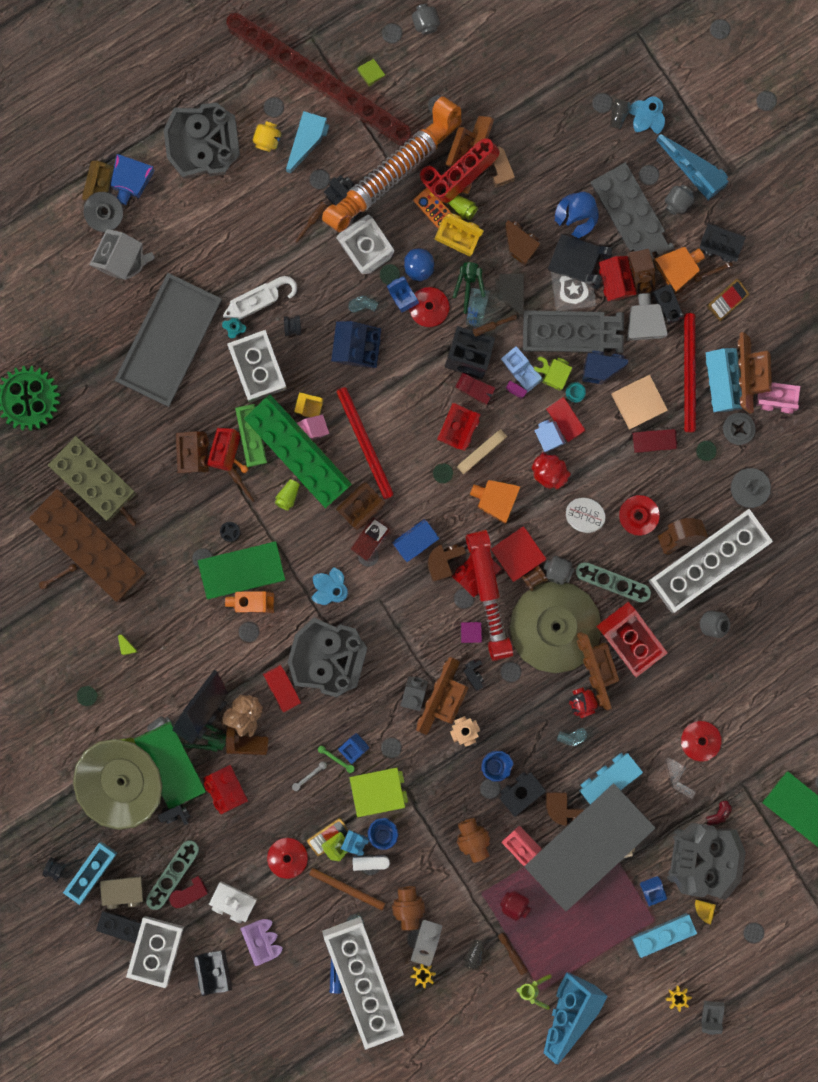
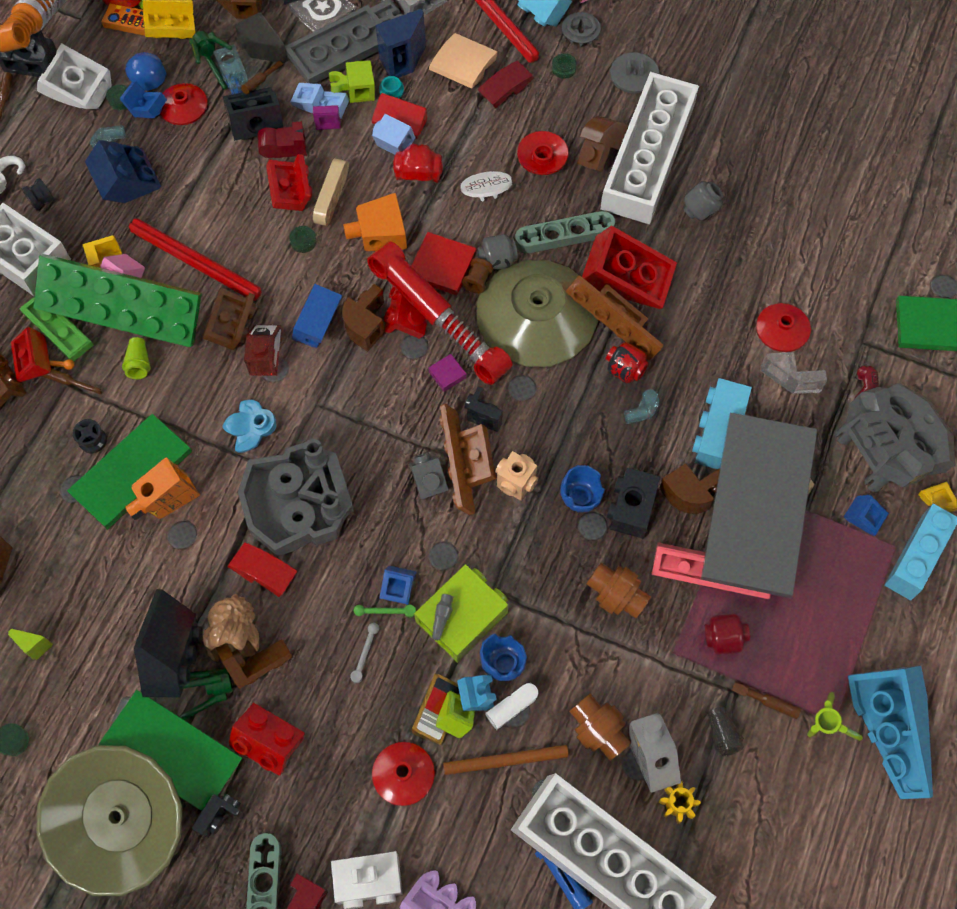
camera: 30 degrees left, 20 degrees down
(363, 790) = (442, 614): none -> dark grey piece

